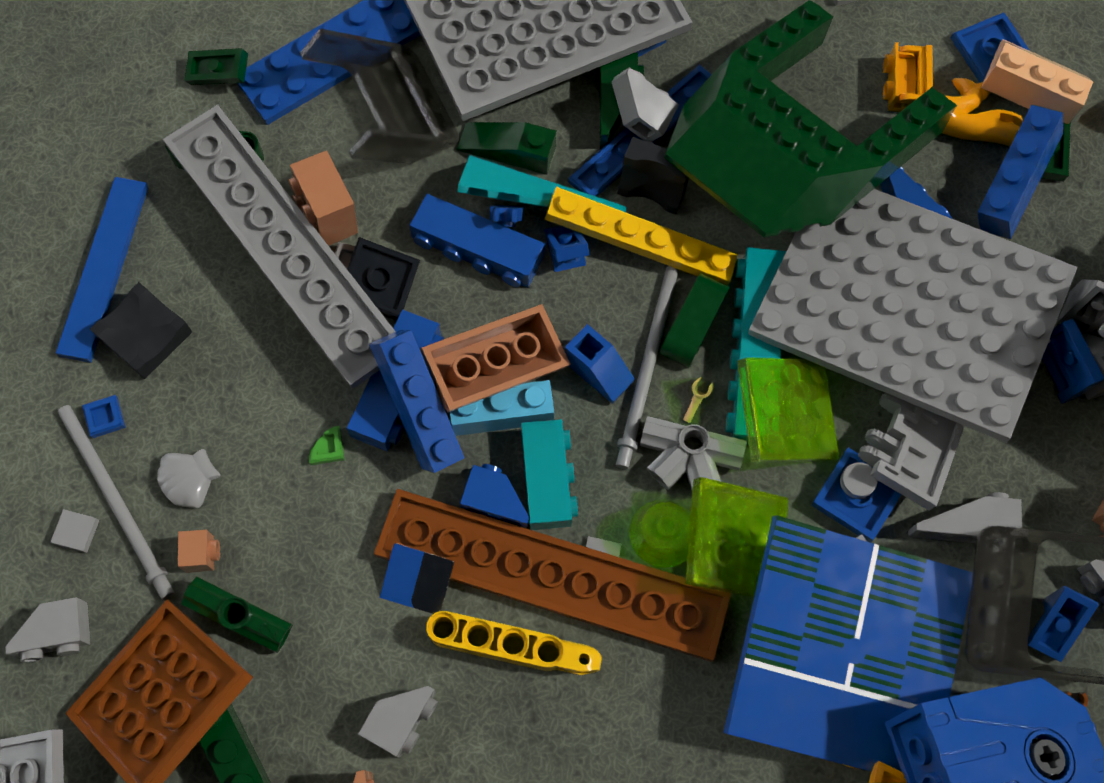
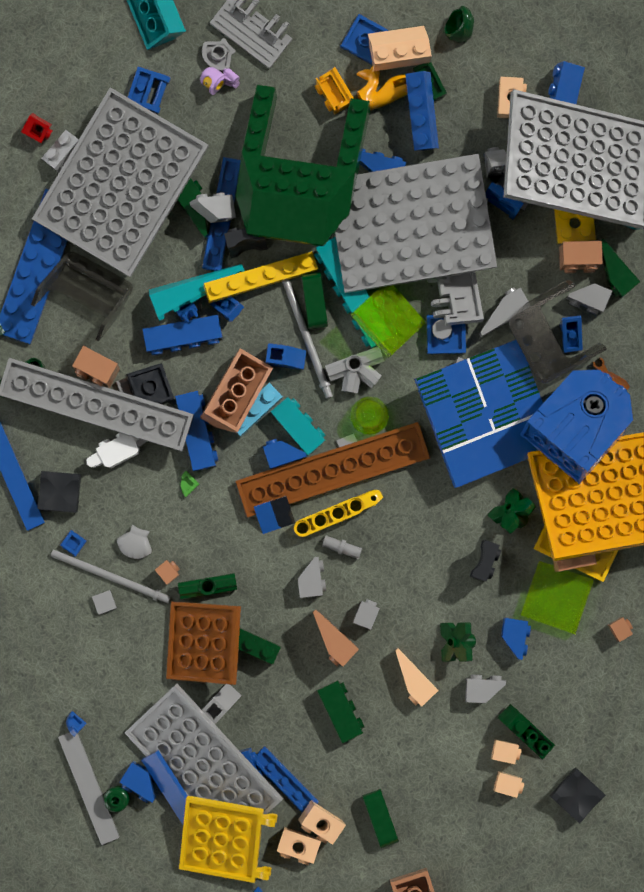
camera: 30 degrees left, 15 degrees up
(52, 627) = (132, 648): light grey slope -> none
(263, 330) = (116, 451): none -> white hinge
(416, 400) = (217, 436): blue brick -> none
(482, 703) = (342, 547): none -> light grey pin
(510, 143) = (159, 271): dark green slope -> none
(696, 400) = (341, 337): light nougat hand -> none
(729, 535) = (400, 397): clear neon green plate -> none

